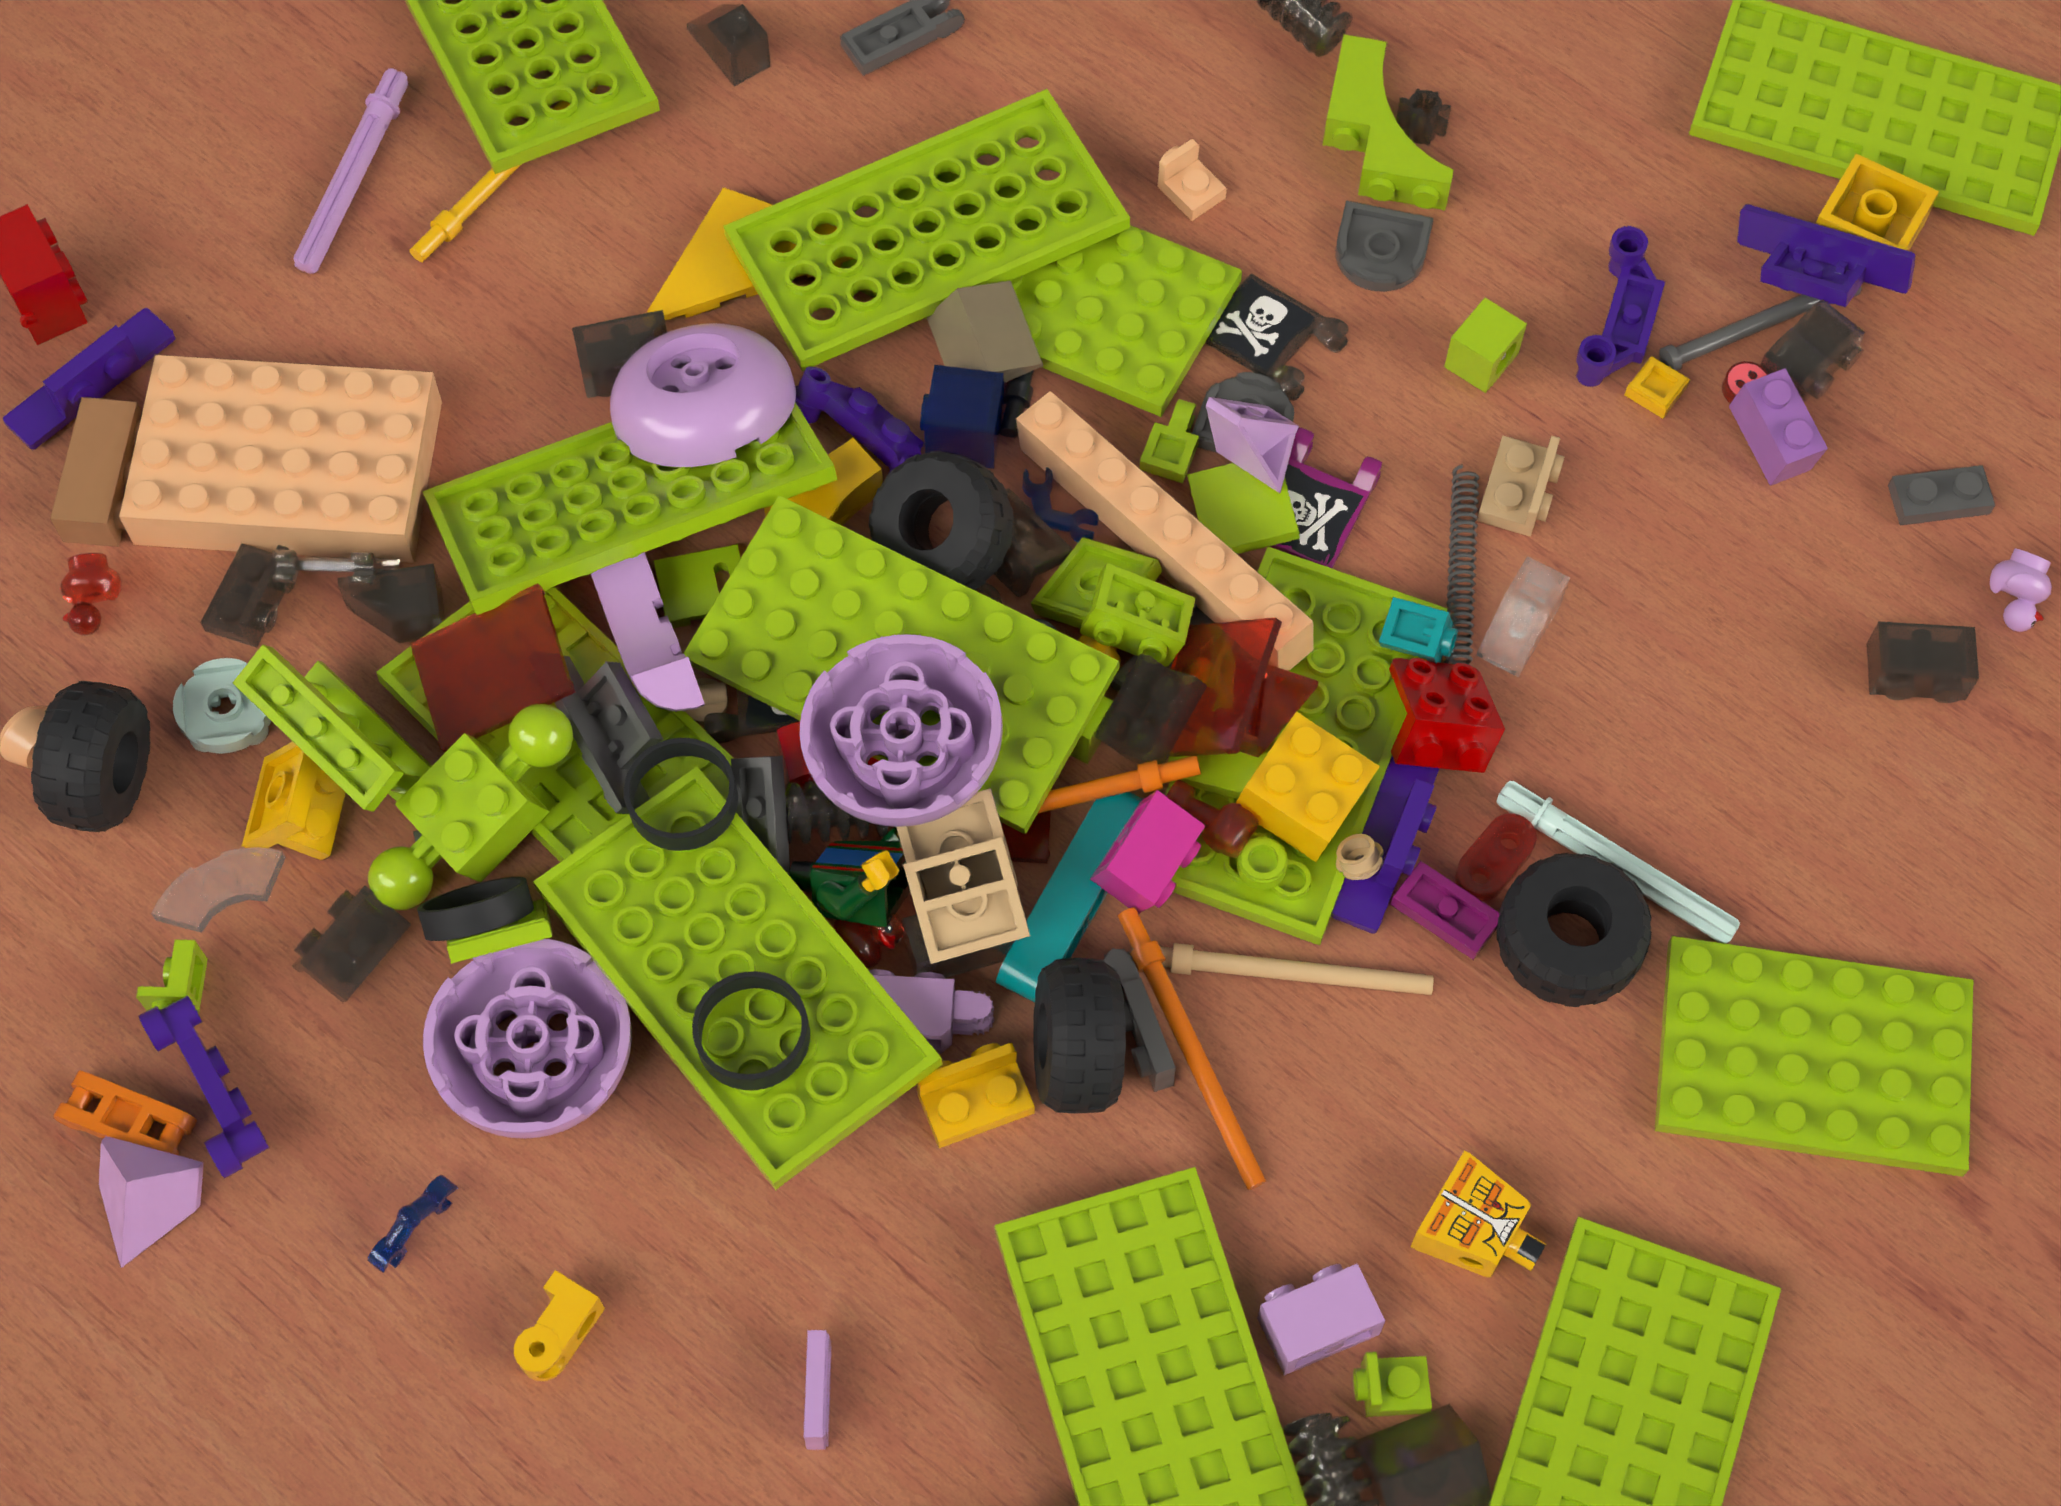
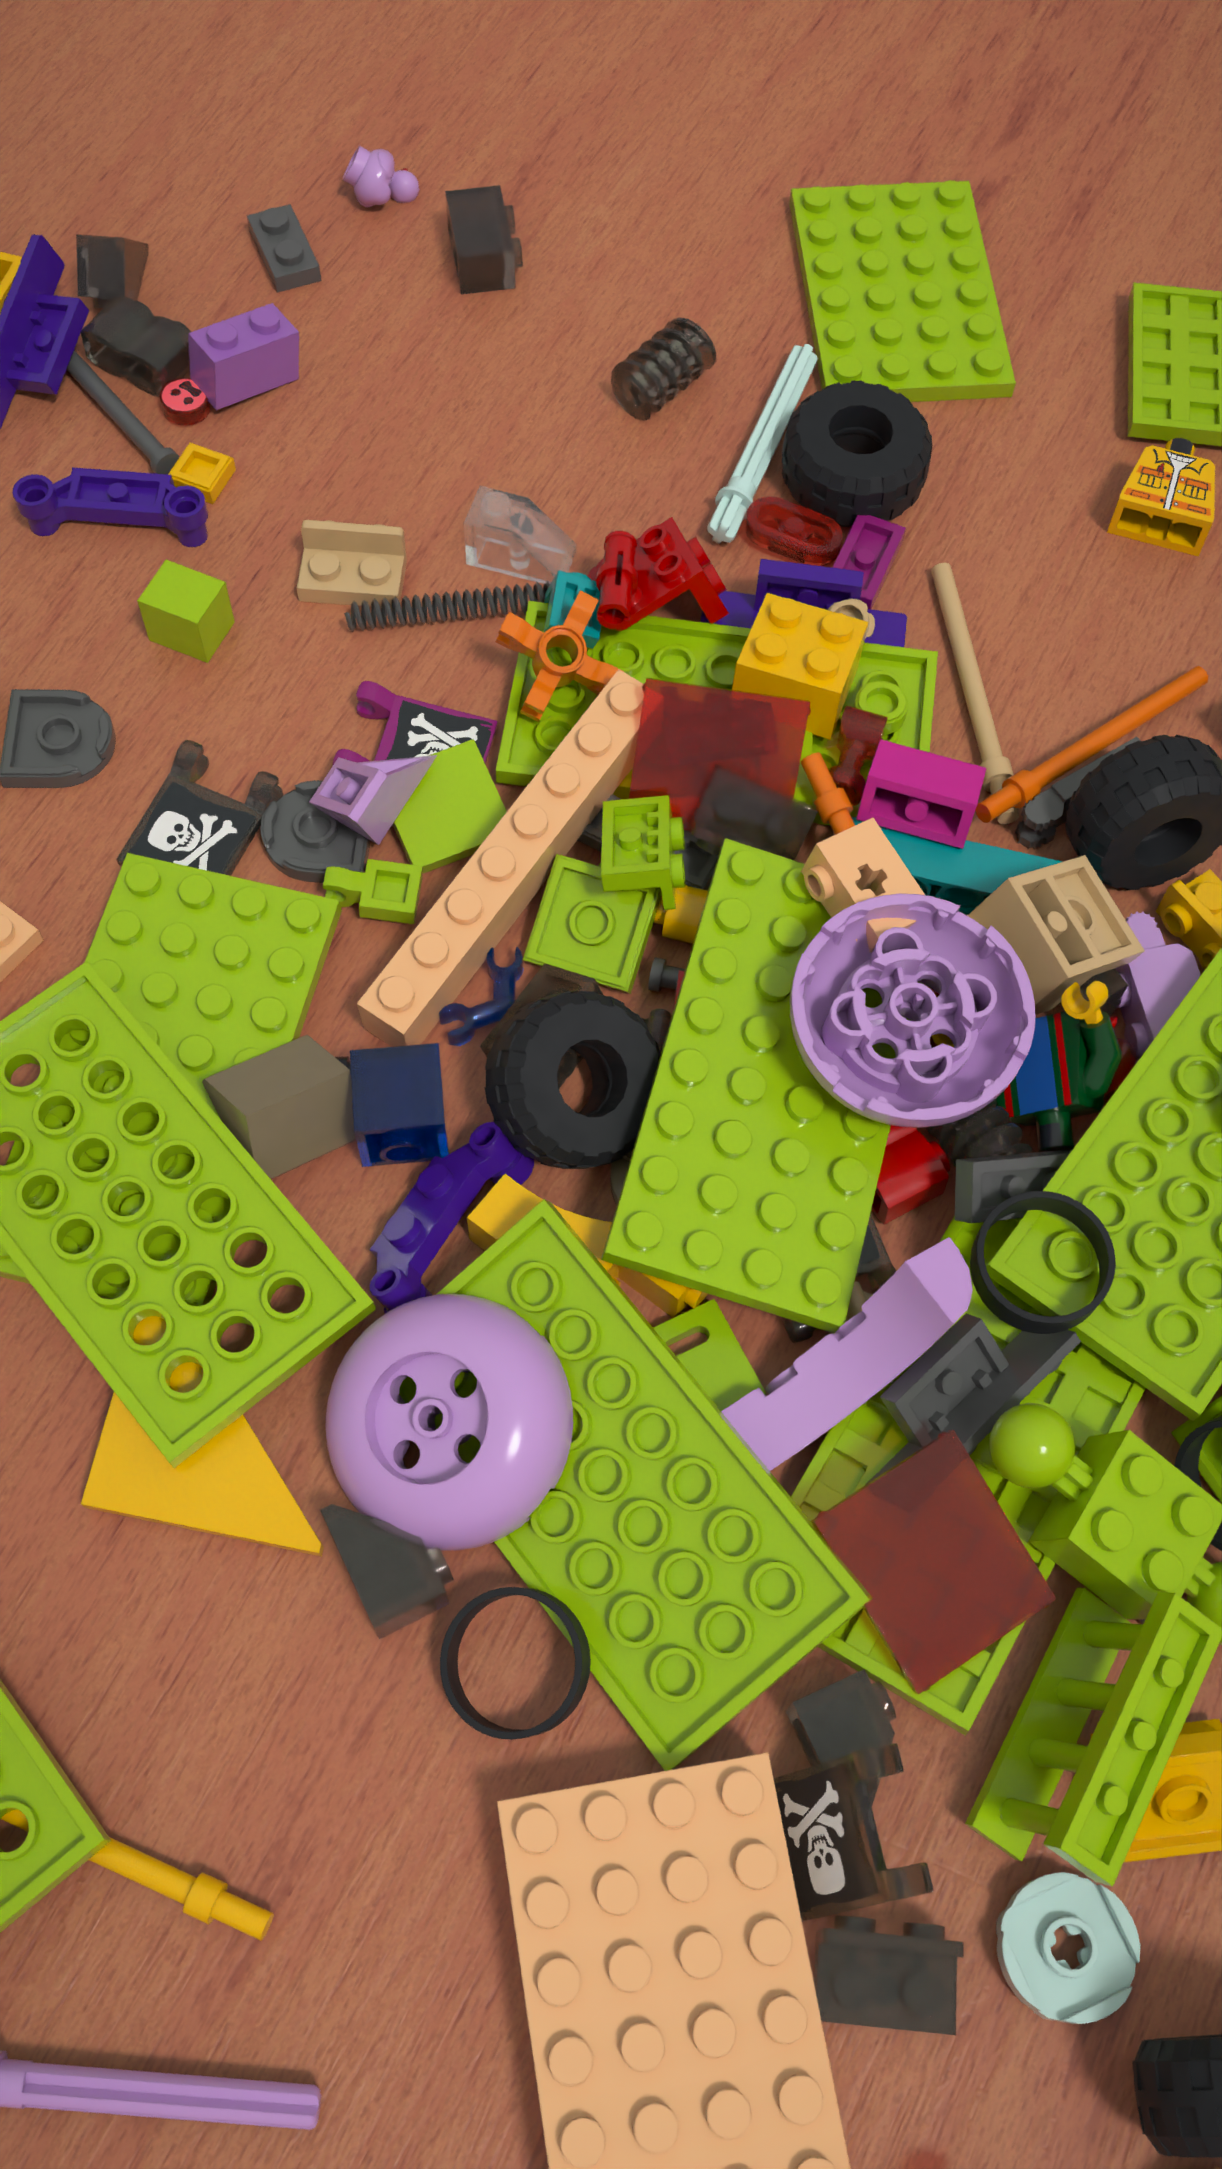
camera: 105 degrees left, 0 degrees up
(533, 445) = (450, 1673): none -> black tyre
(1058, 745) = (857, 868): none -> light nougat brick
(1371, 608) = (524, 638): none -> orange pin
(1427, 655) = (616, 599): none -> red pin
(1718, 787) = (662, 367): none -> clear smoke piece
(1917, 341) = (109, 268): none -> clear smoke slope

